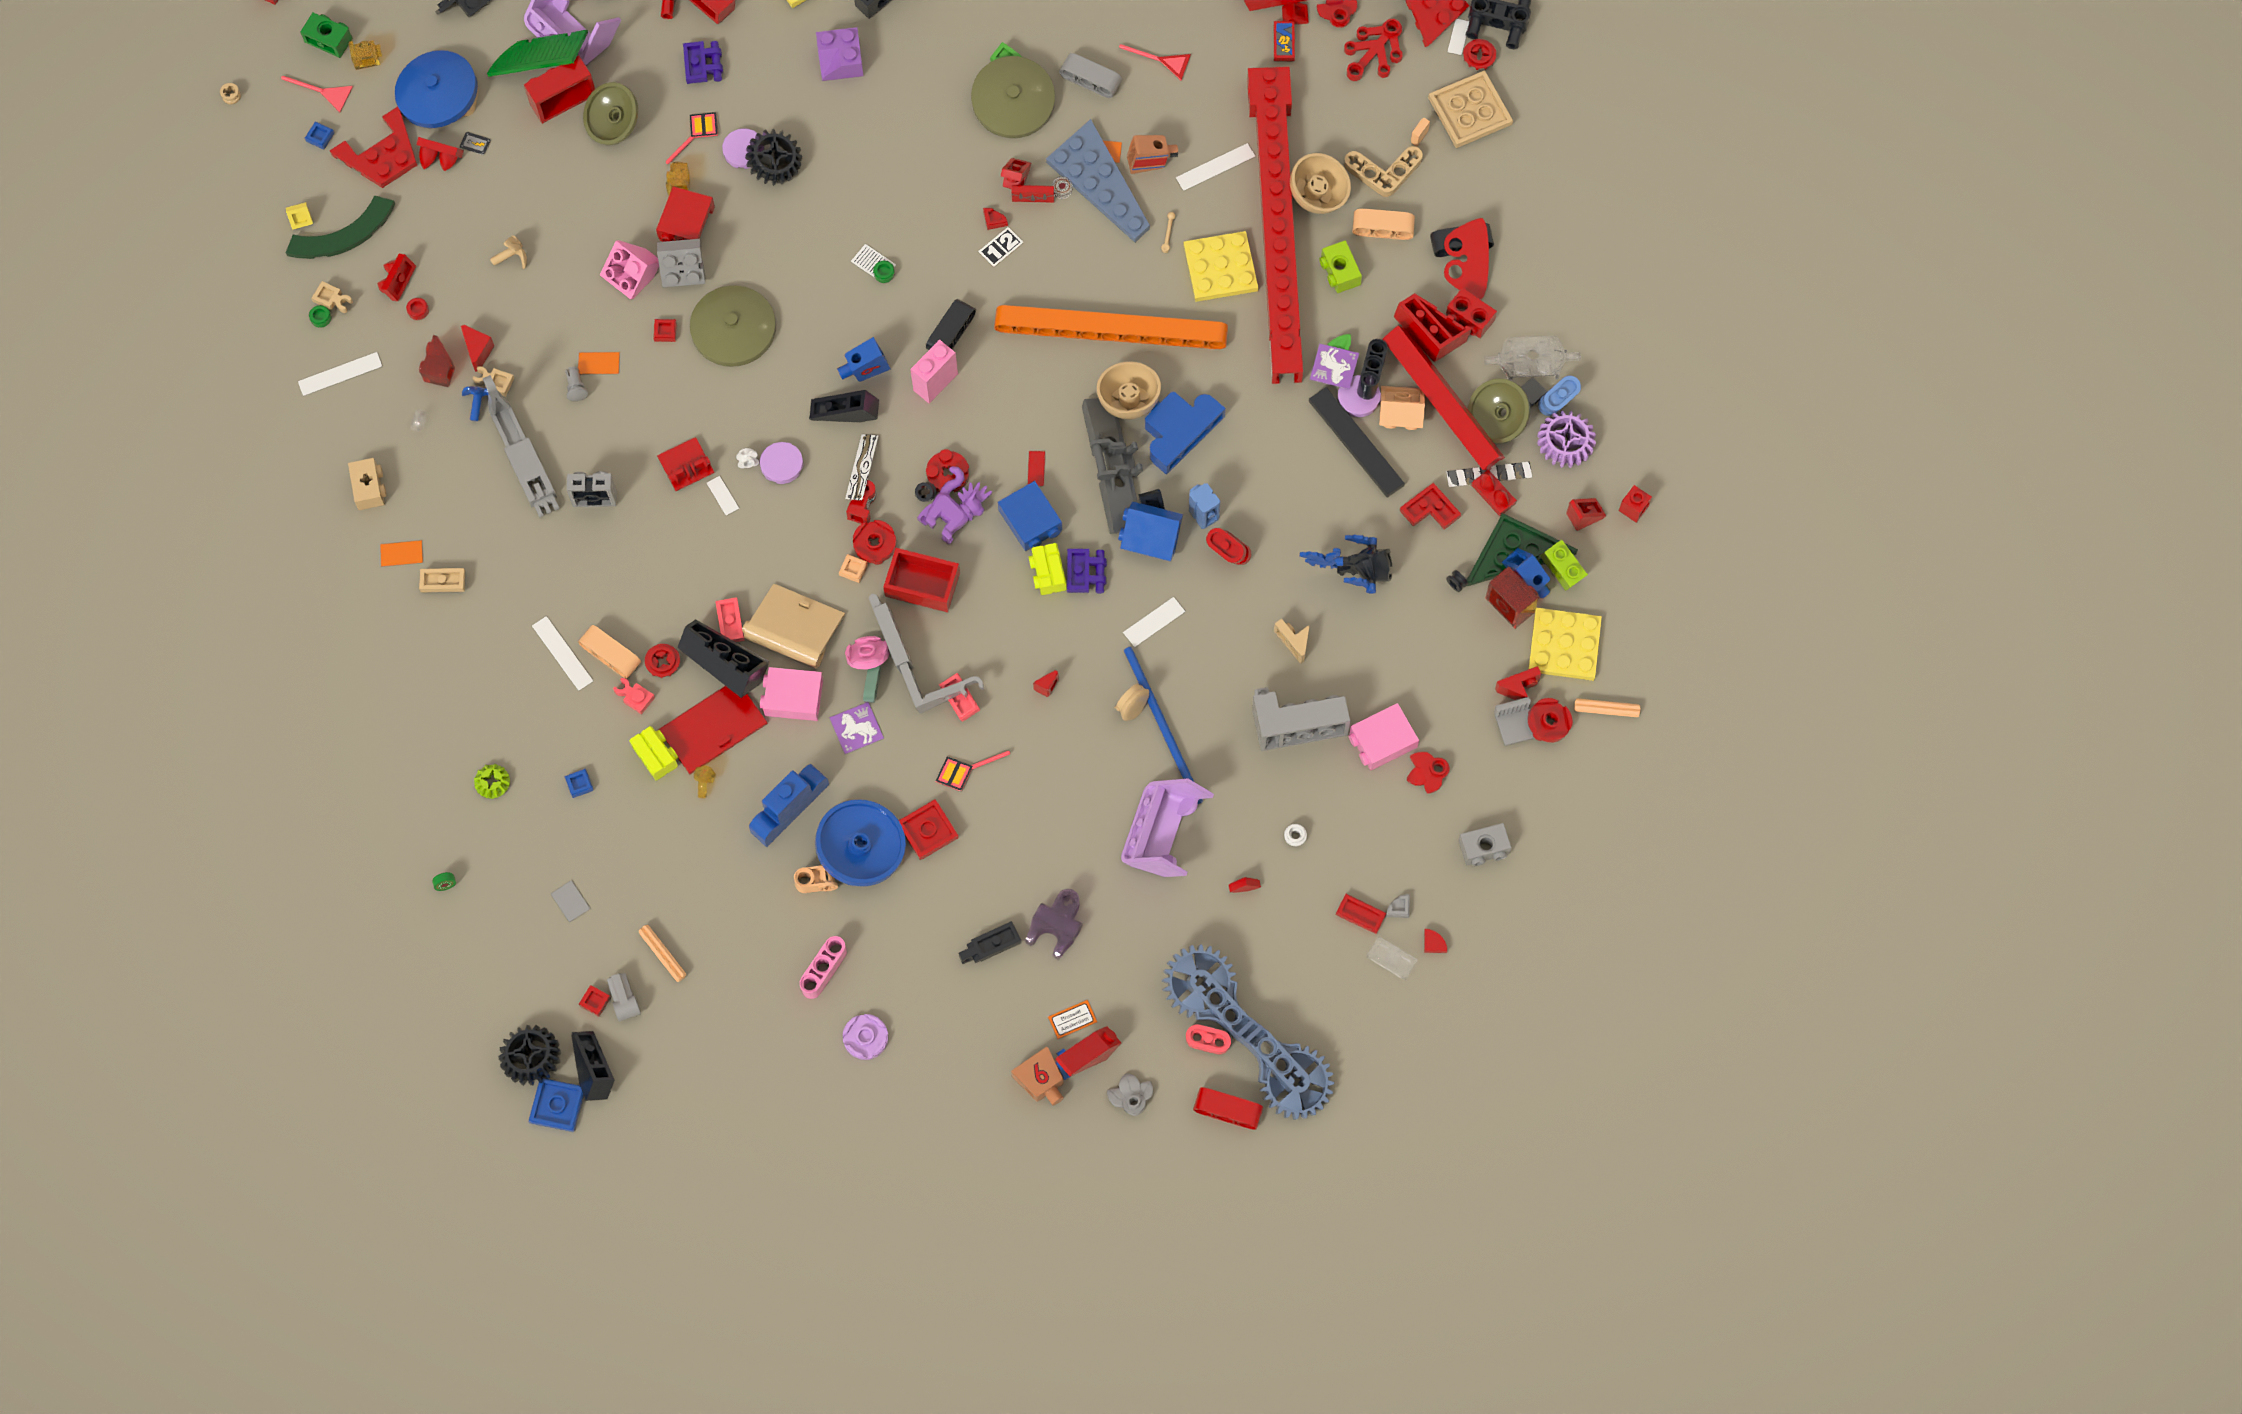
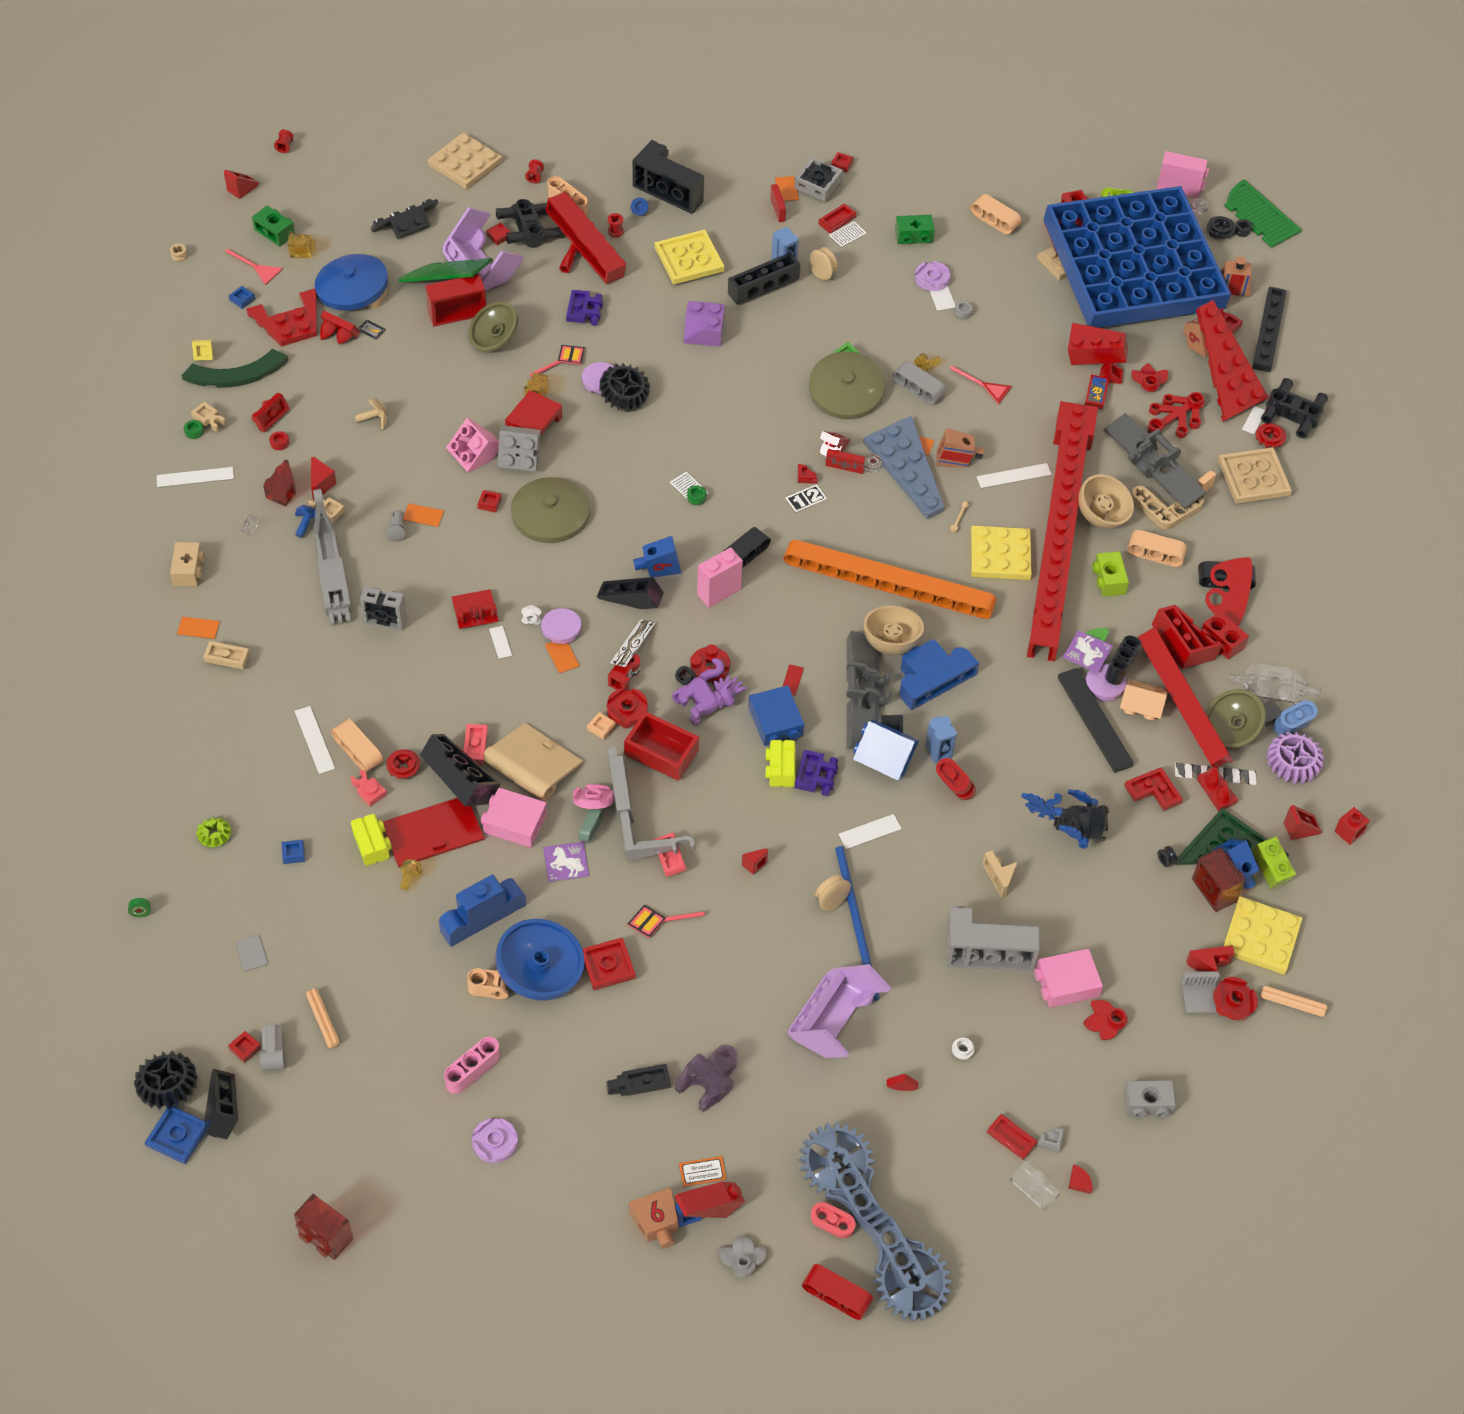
camera: 10 degrees right, 15 degrees down
(728, 1165) = (323, 1227): none -> clear red brick
(791, 497) = (562, 656): none -> orange sticker
(1089, 49) = (923, 363): none -> clear yellow plate
(1357, 121) = (1150, 463): none -> dark grey piece

